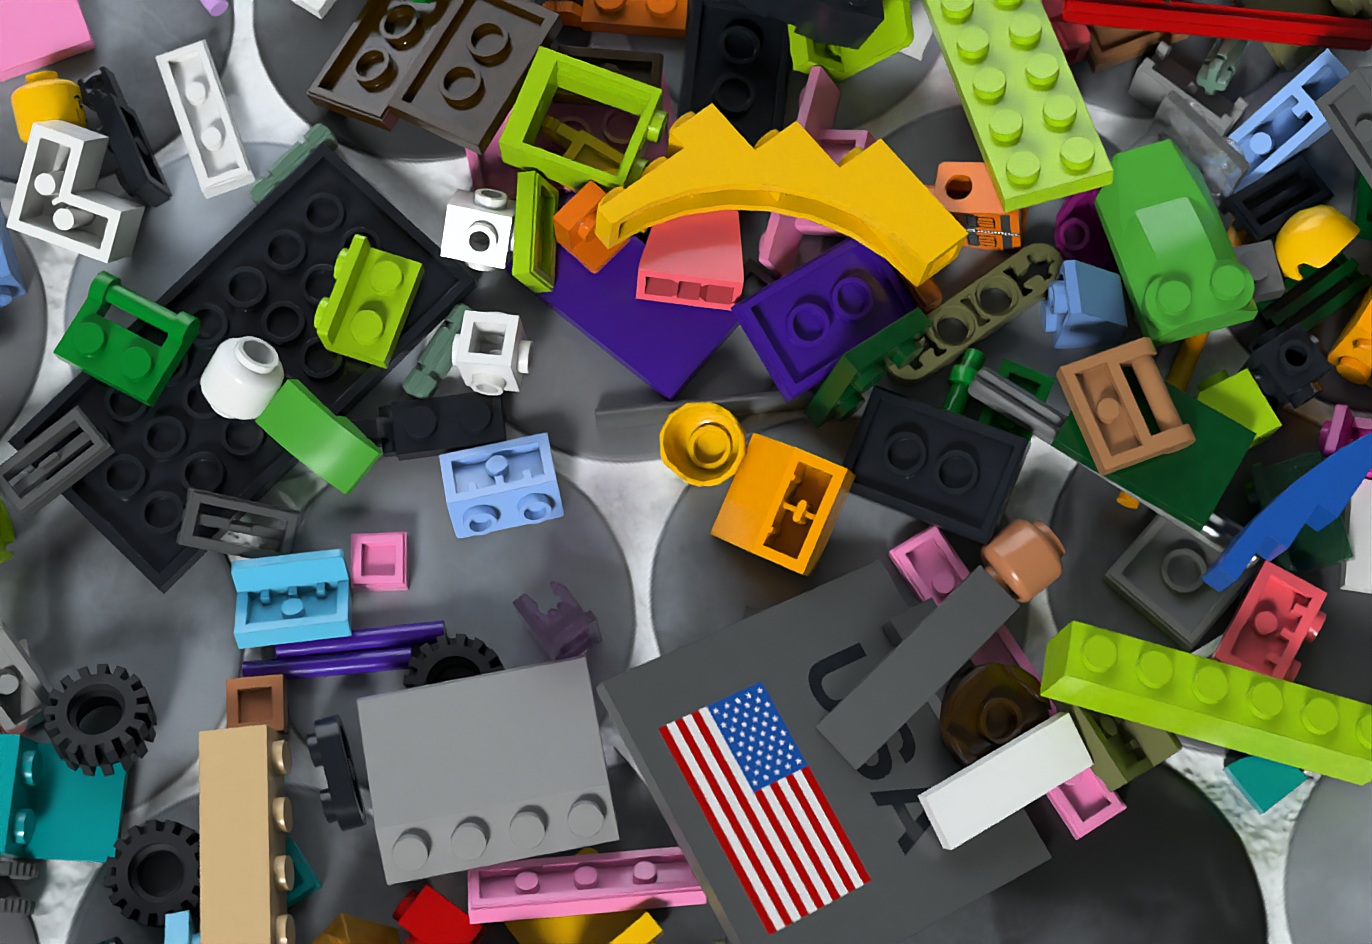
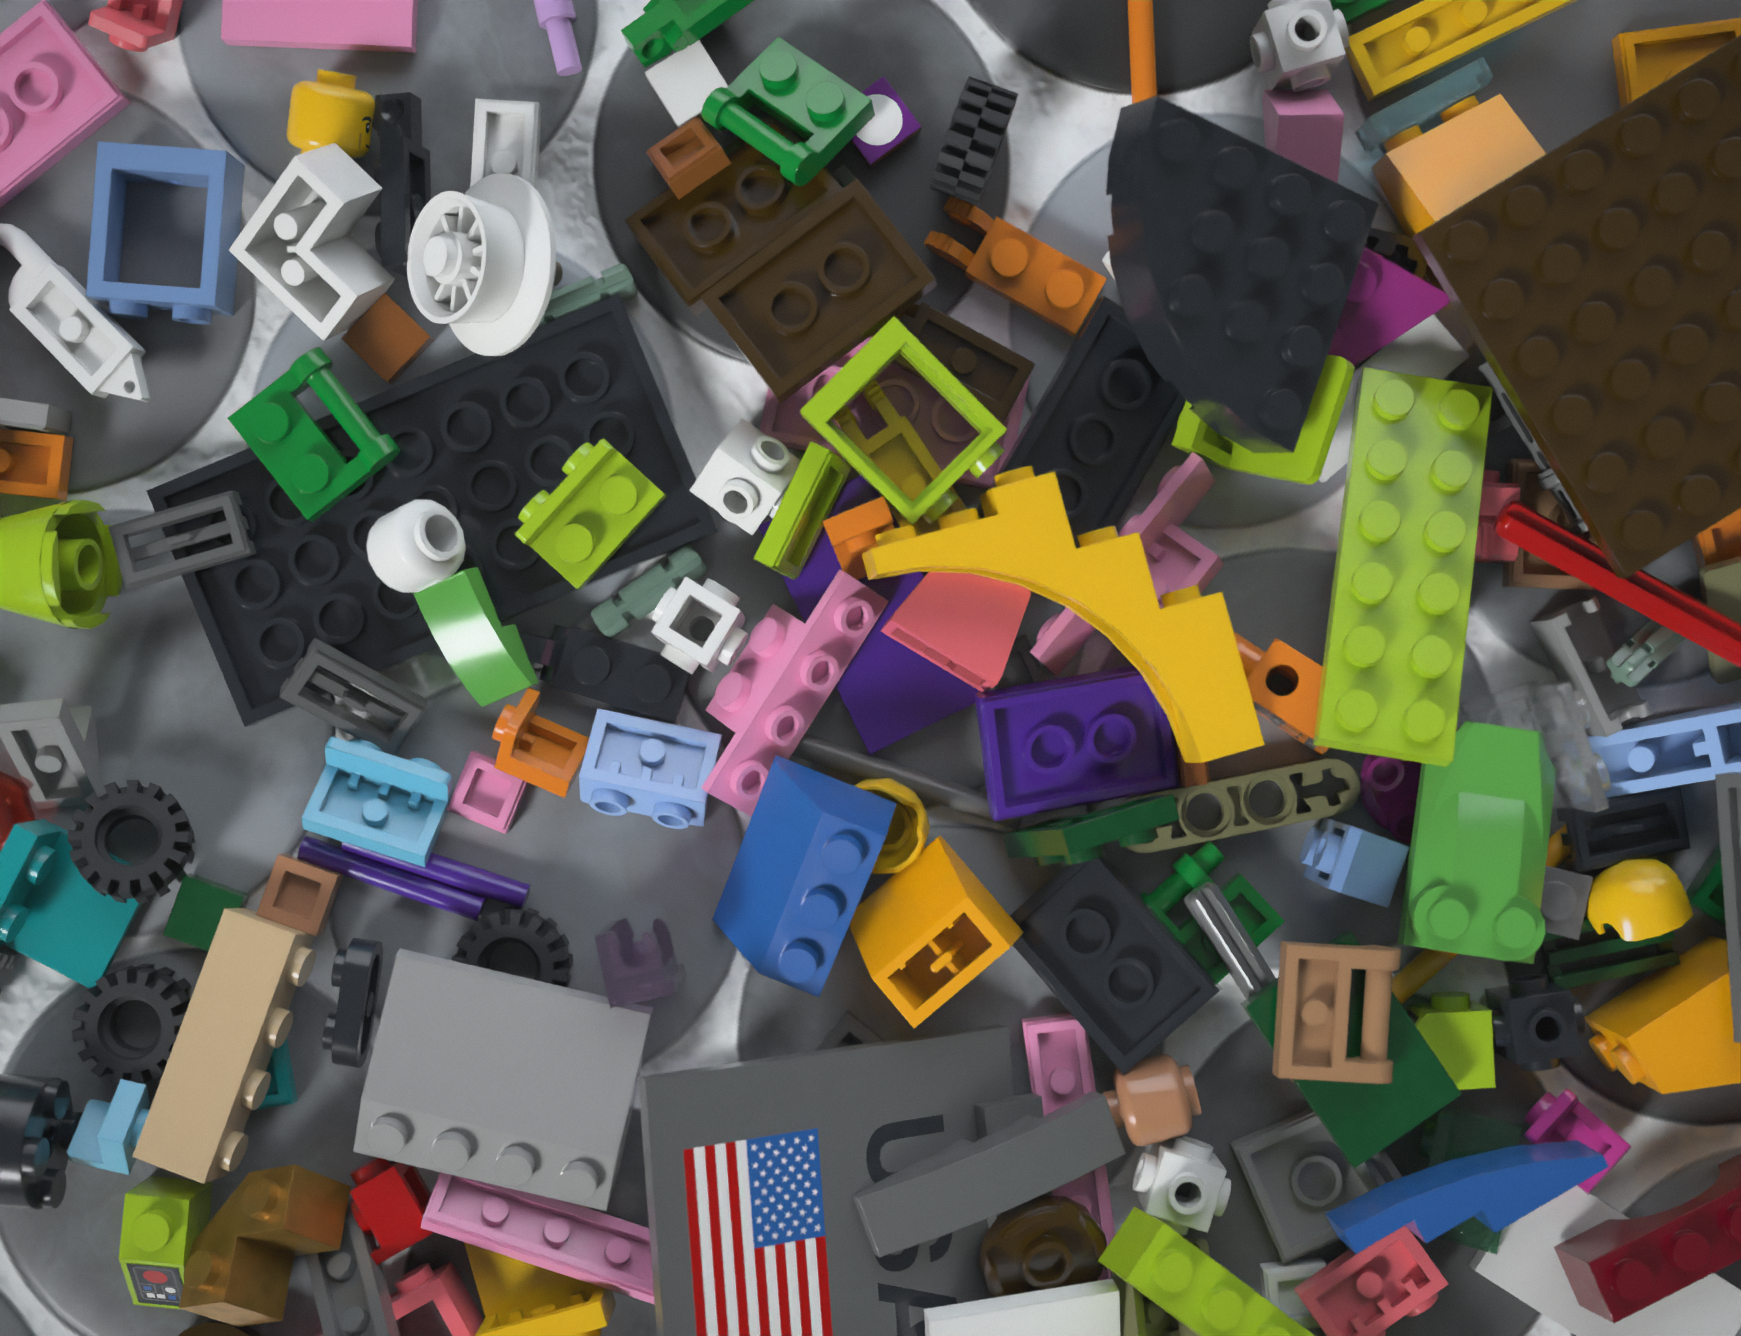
camera: 25 degrees right, 15 degrees up
(156, 254) = (387, 339): none -> dark orange tile
(177, 761) = (199, 910): none -> dark green tile
(211, 154) = (485, 262): none -> white piece
(335, 28) = (688, 157): none -> dark orange tile
(403, 506) = (537, 747): none -> orange bracket
(579, 371) = (784, 683): none -> bright pink bracket
(656, 500) = (801, 873): none -> blue slope
(1072, 590) = (1171, 1165): none -> white brick

